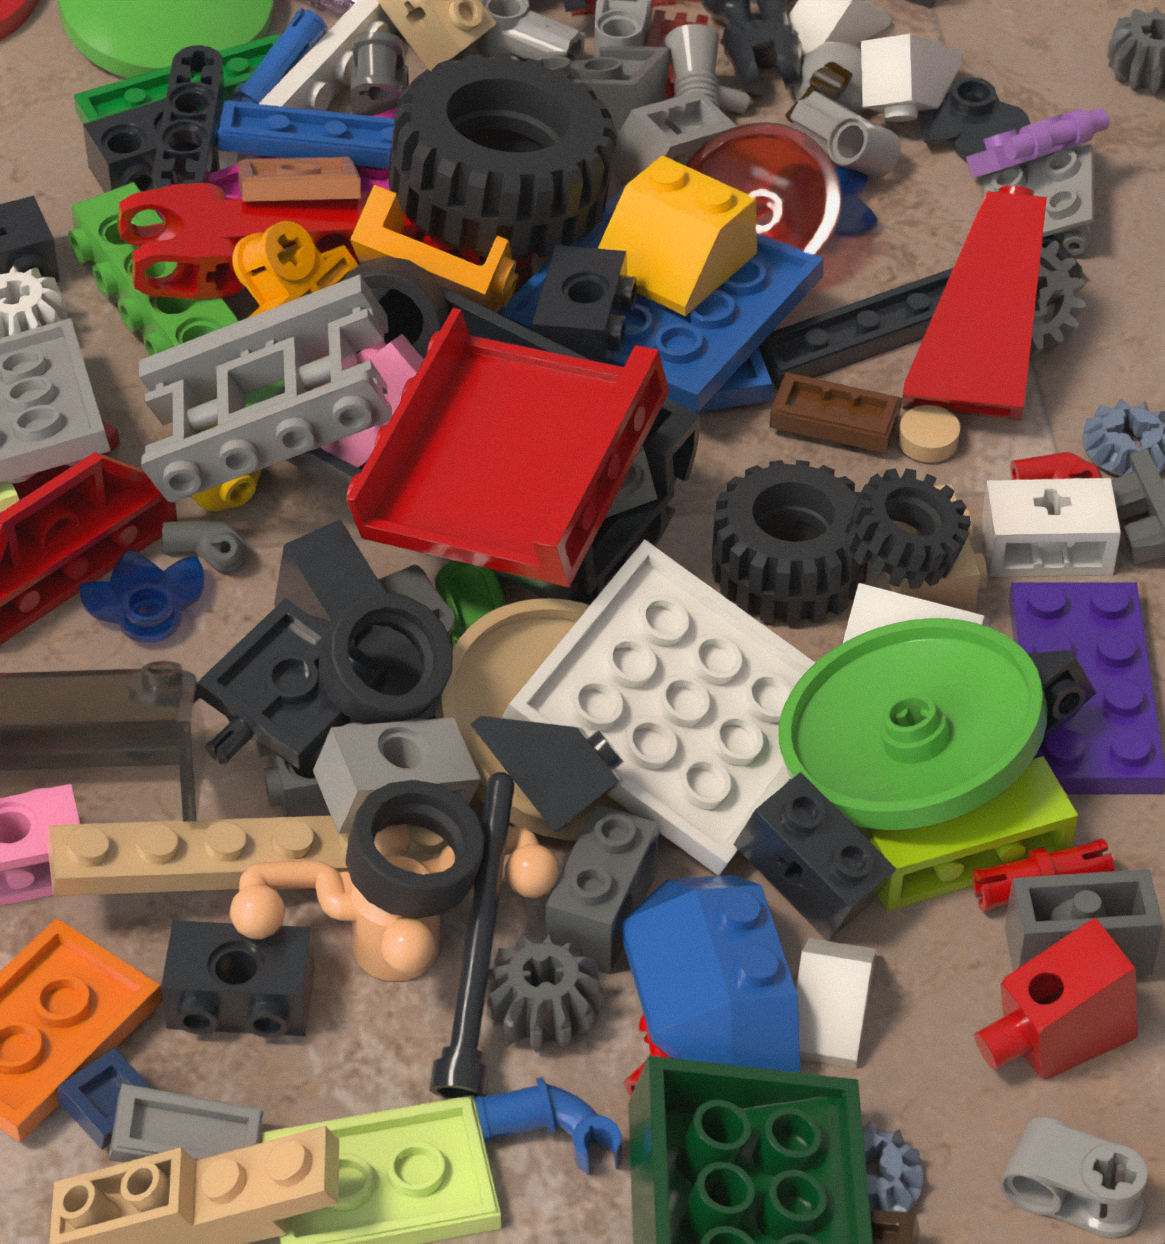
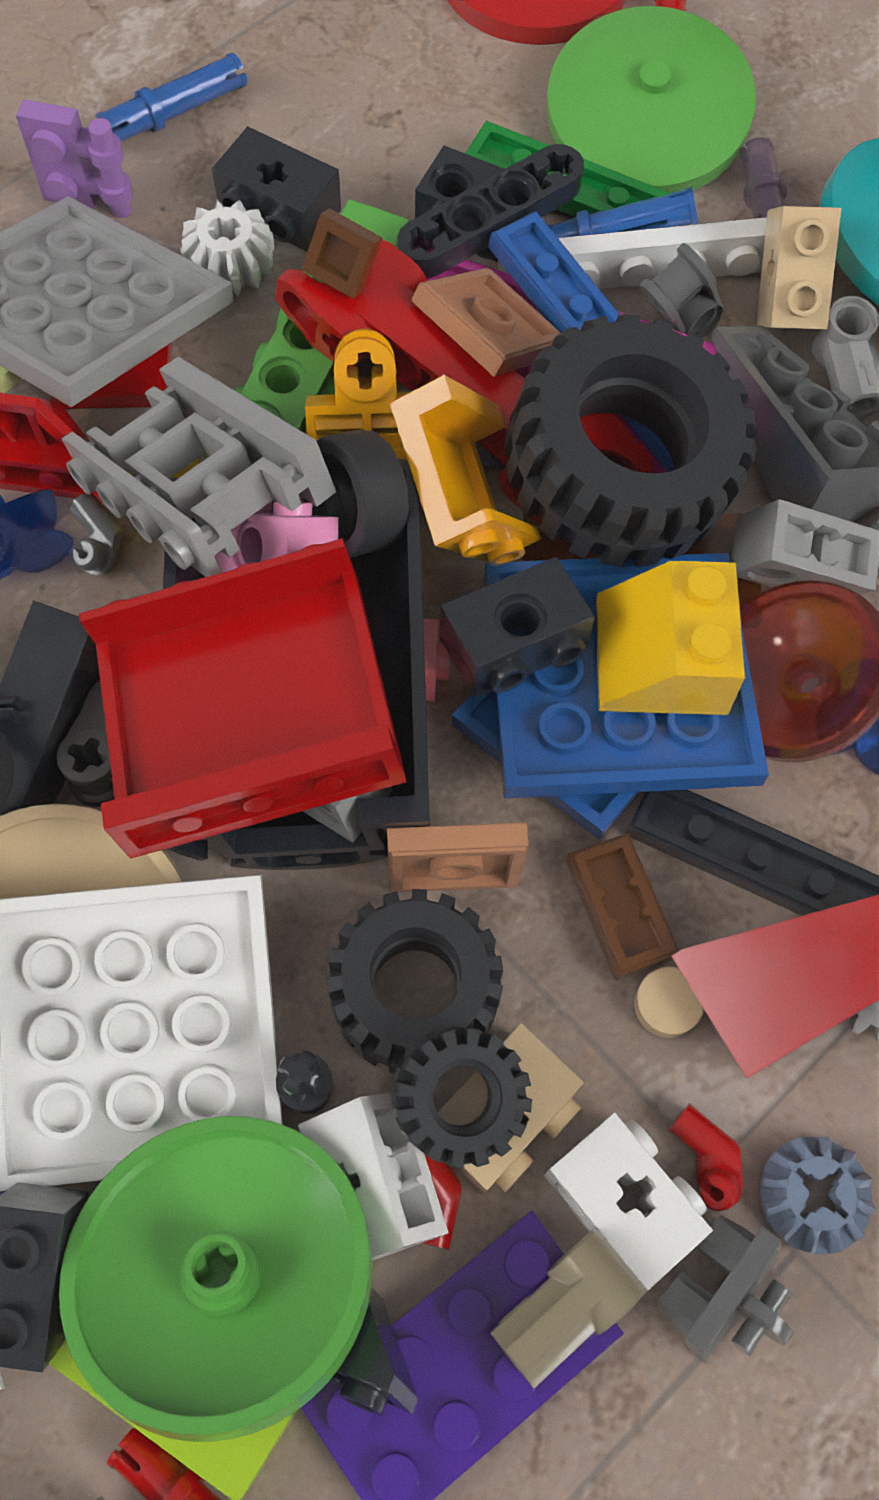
camera: 50 degrees right, 20 degrees up
(175, 200) = (341, 253): none -> reddish brown tile
(717, 452) = (456, 856): none -> nougat tile
(812, 625) = (304, 1082): none -> black axle
(1096, 568) = (581, 1297): none -> dark tan piece

